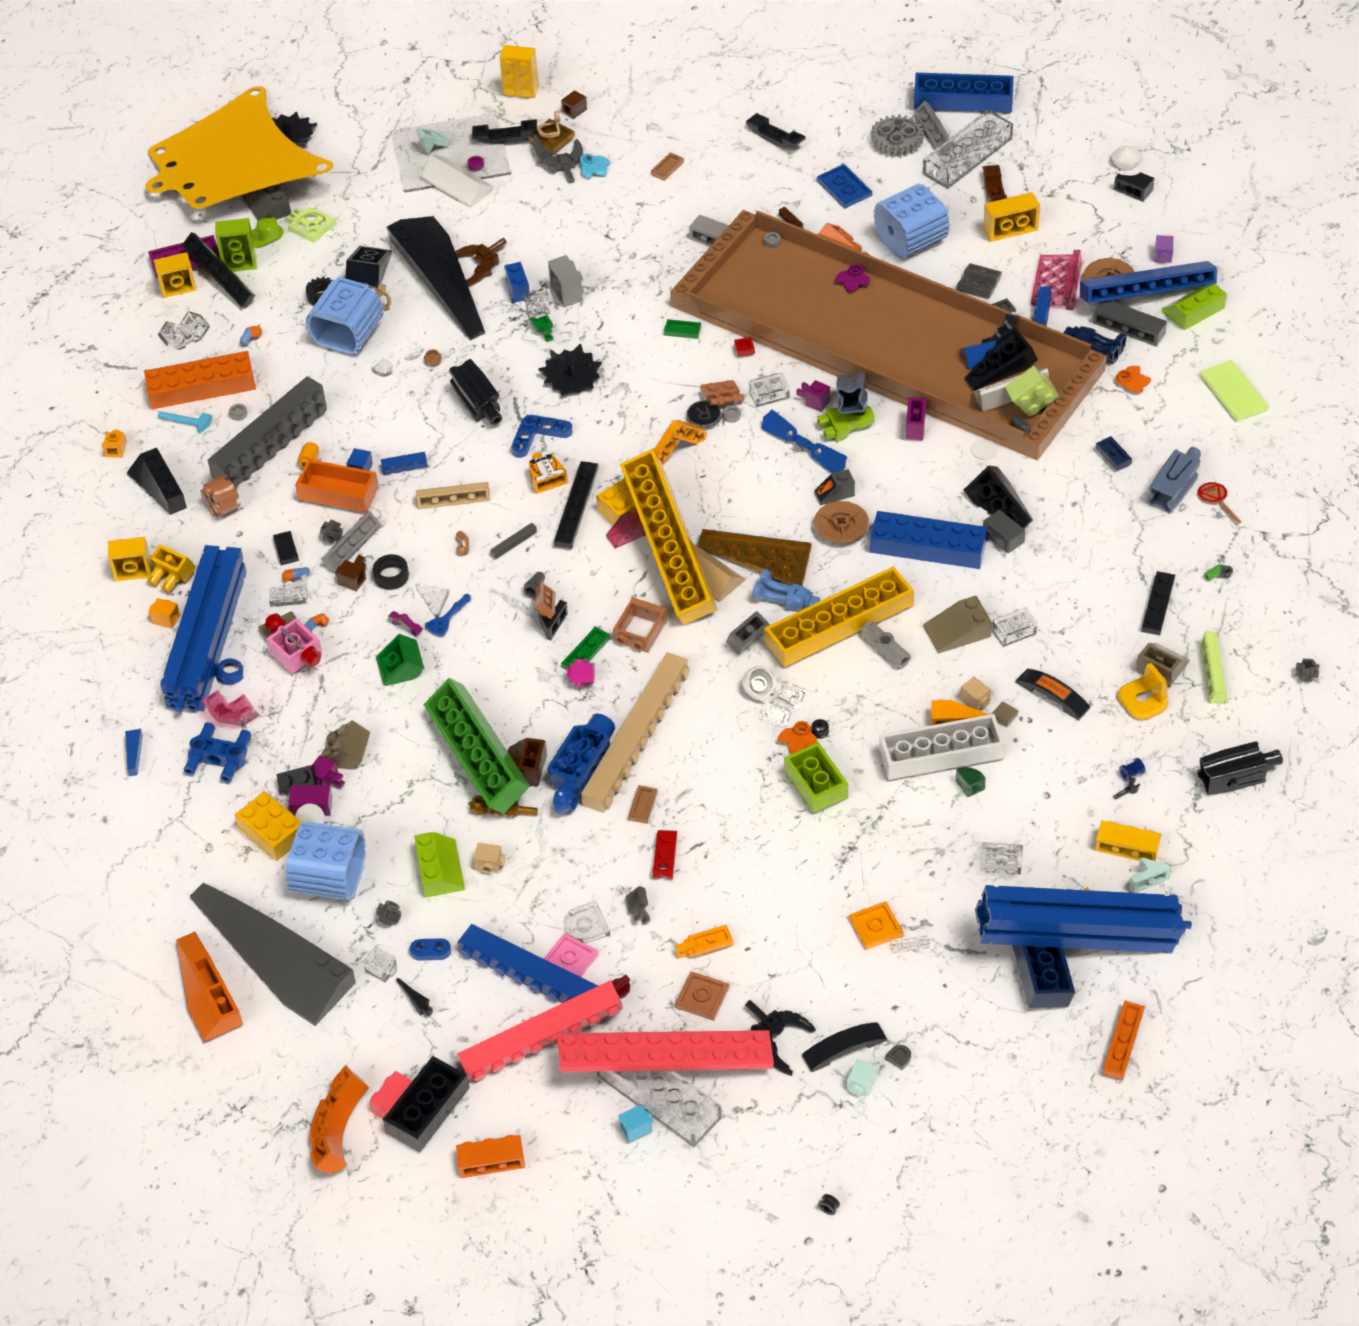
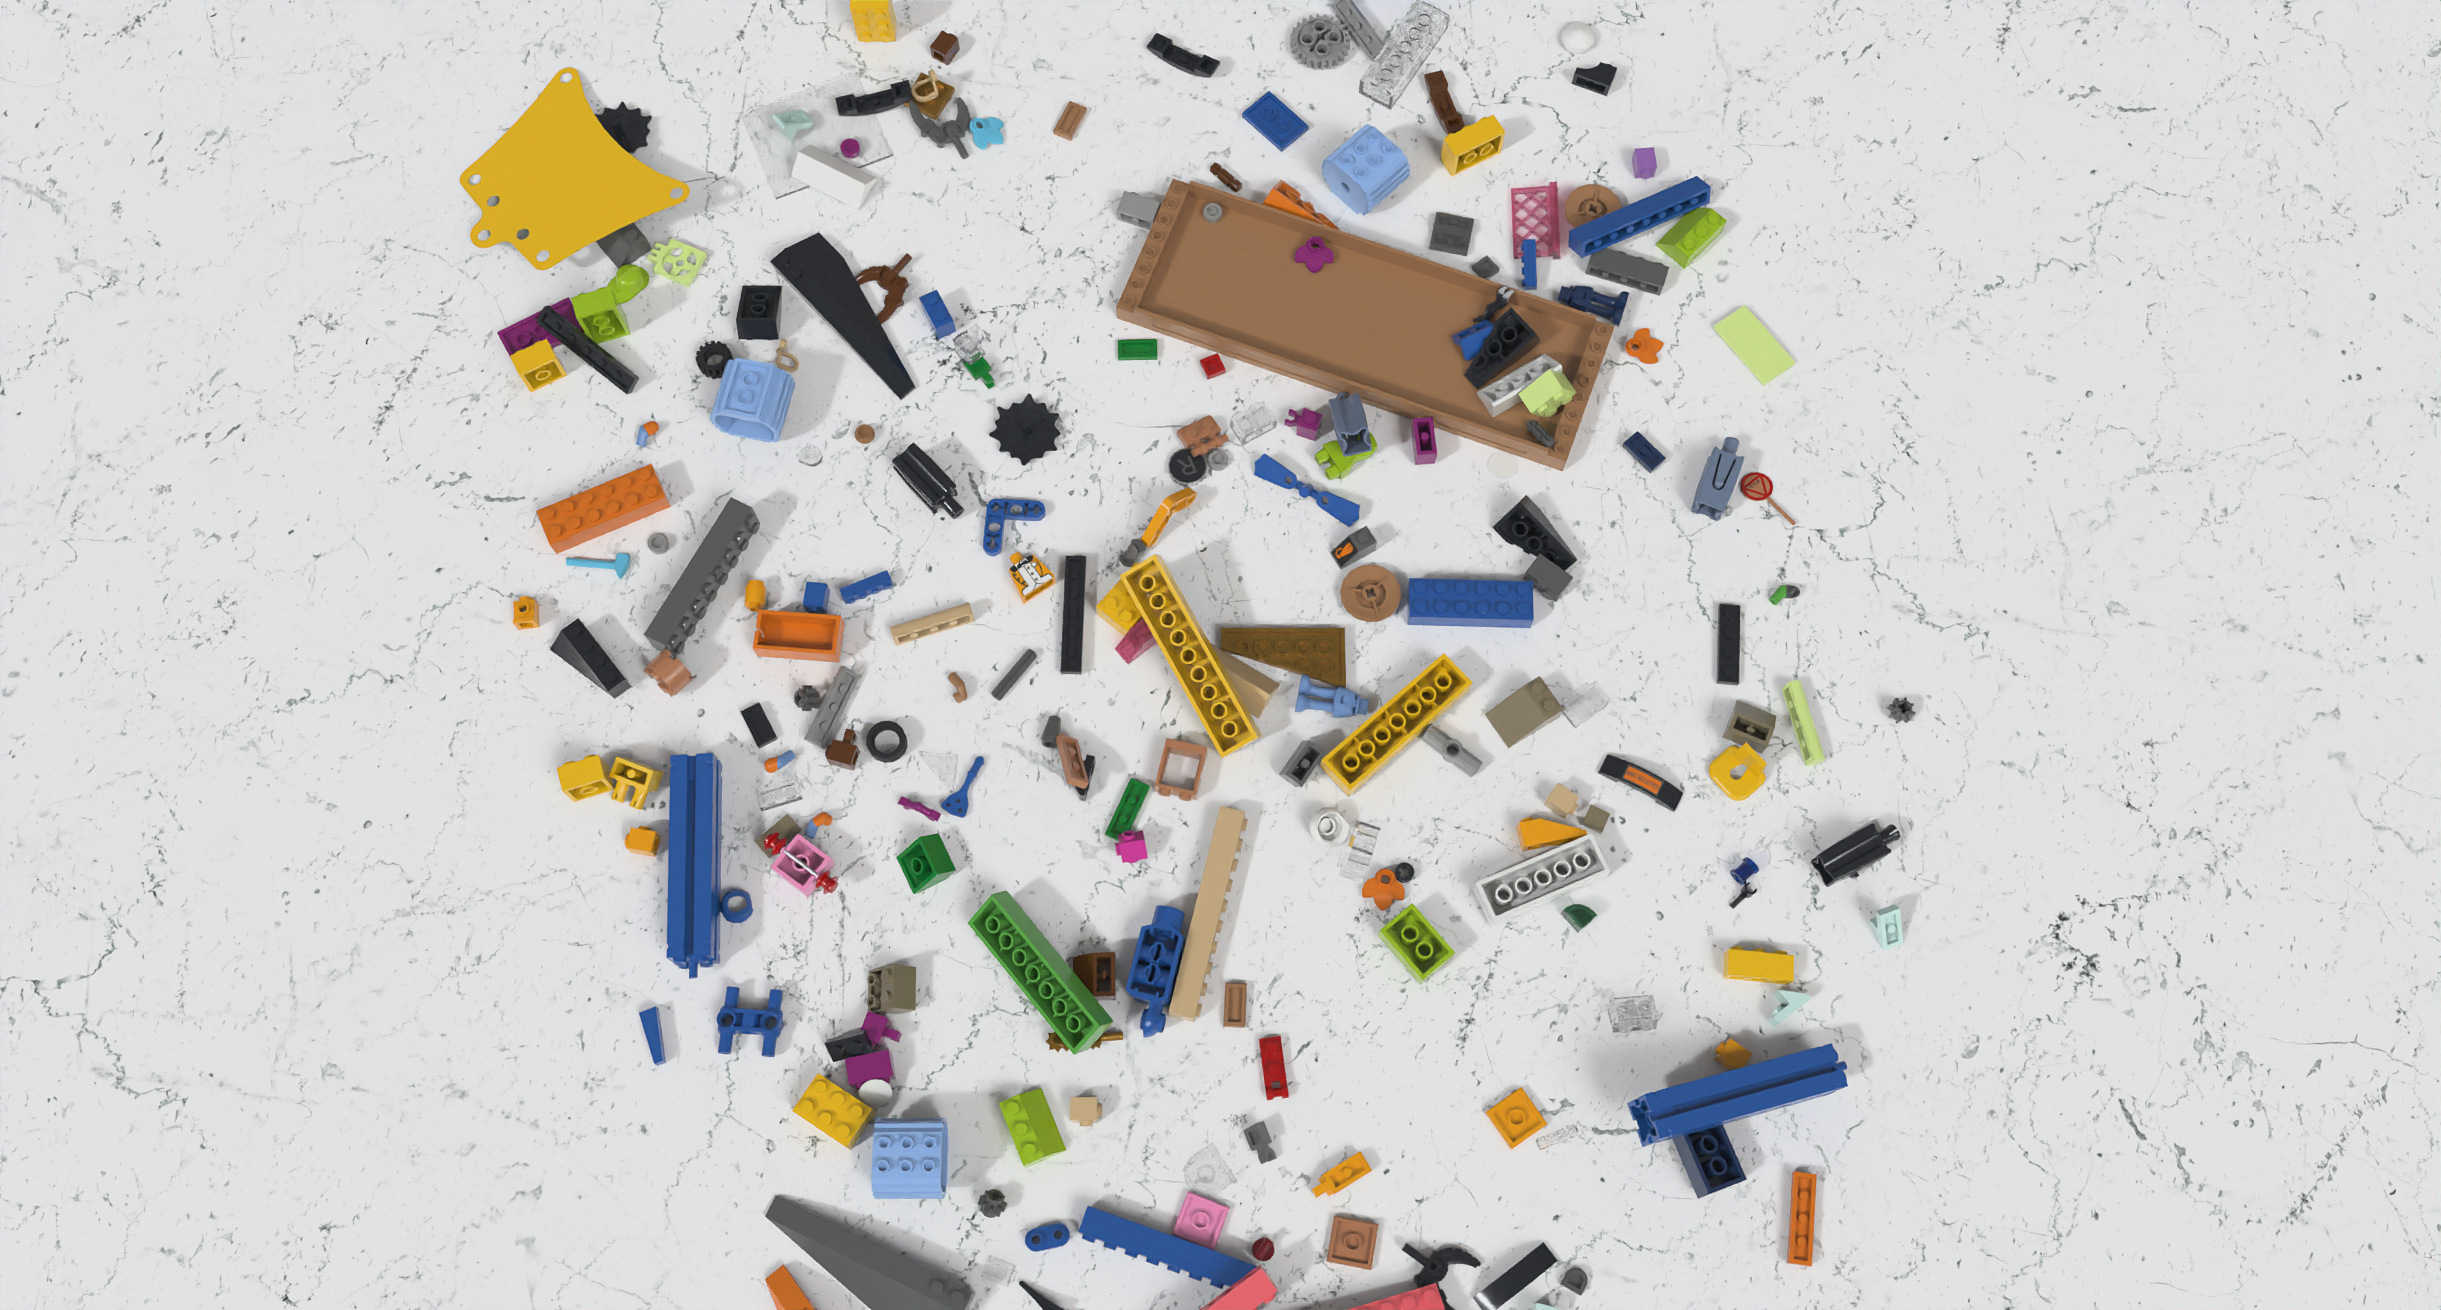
camera: 15 degrees left, 20 degrees up
(190, 329) = (560, 448): clear brick -> none
(237, 712) = (742, 966): clear pink brick -> none
(565, 280) = (993, 307): light grey brick -> none
(1257, 828) = (1888, 926): none -> light aqua slope

